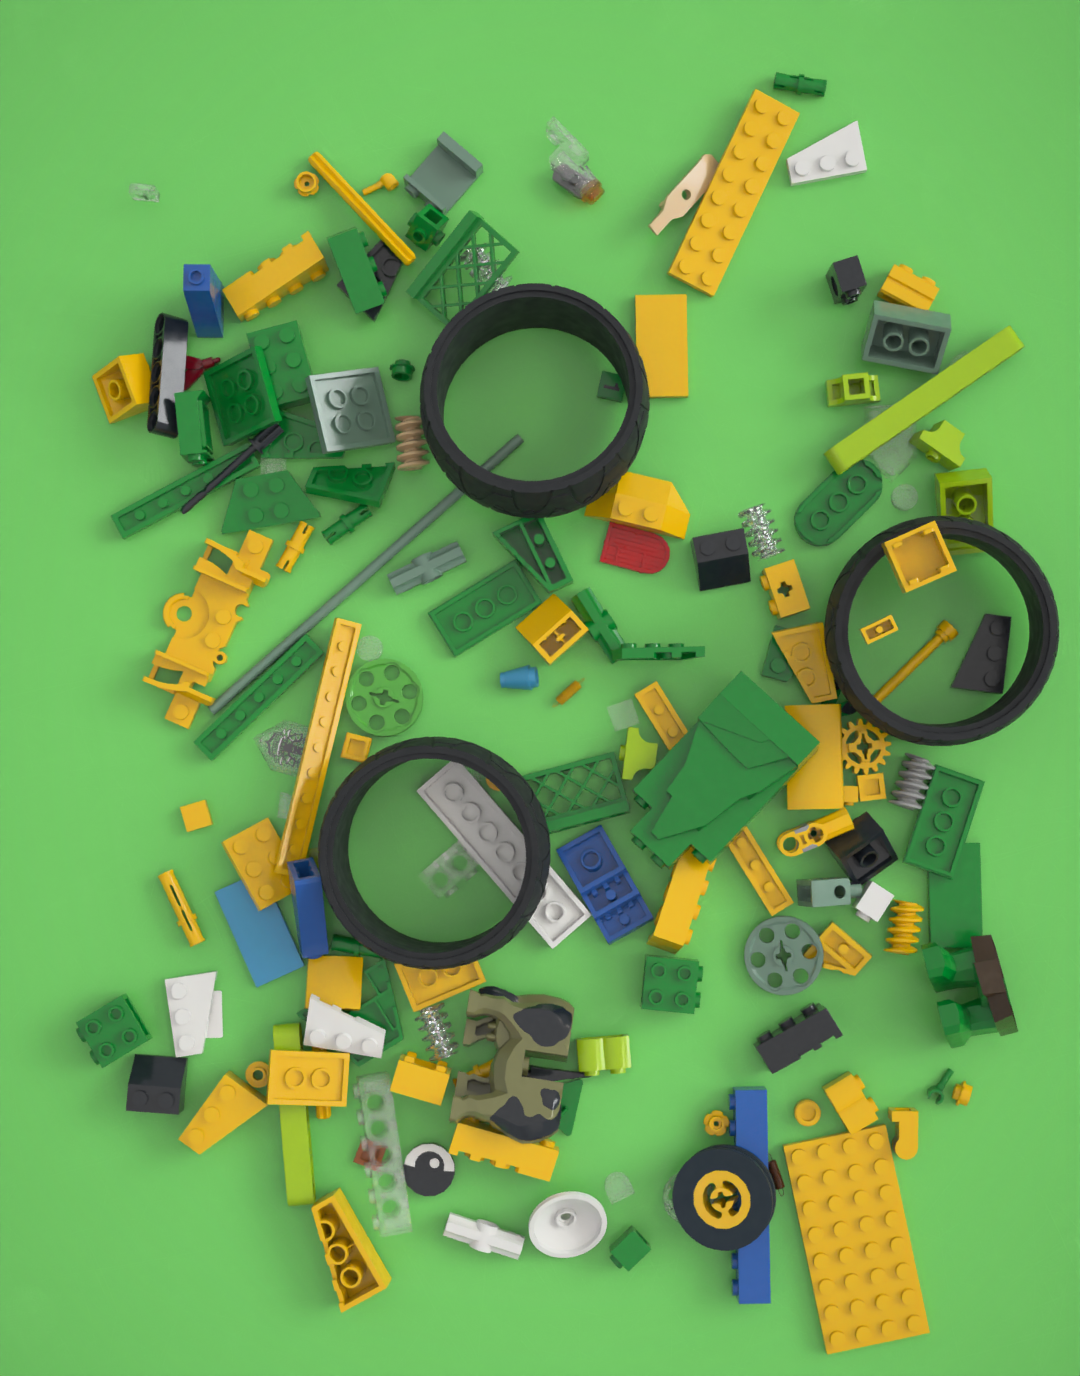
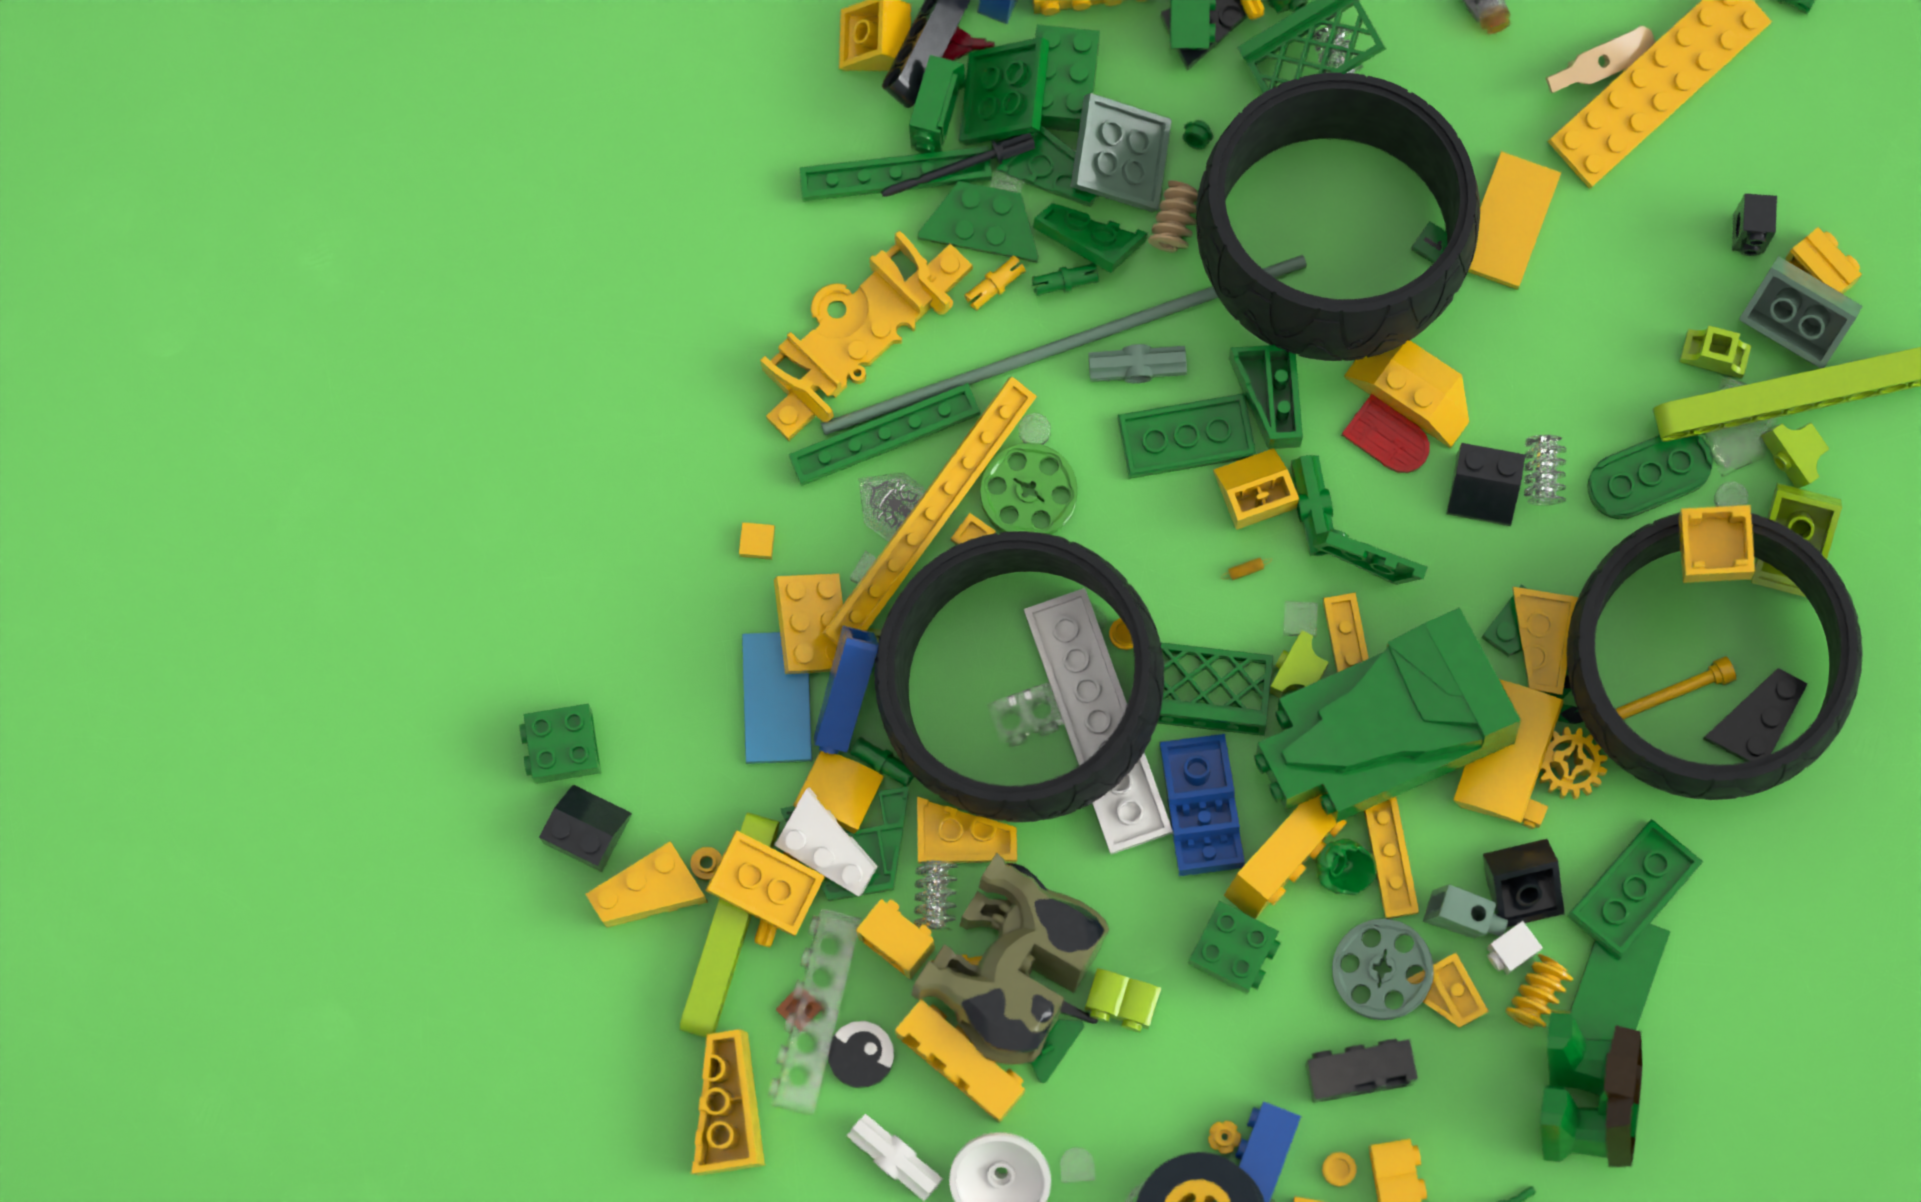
camera: 30 degrees right, 10 degrees down
(189, 1010) = (657, 757): white wing -> none
(195, 936) = (697, 674): yellow pin -> none
(215, 1024) = (680, 775): white sticker -> none
(520, 678) = (1196, 529): dark azure cone -> none
(728, 891) = (1345, 867): none -> green hair
(787, 575) = (1556, 531): yellow brick -> none
(826, 828) = (1489, 835): yellow connector -> none
(829, 158) = (1787, 85): white wing -> none
(871, 787) = (1563, 814): yellow plate -> none
(878, 629) = (1638, 610): yellow piece -> none
(912, 782) = (1613, 826): light grey piece -> none

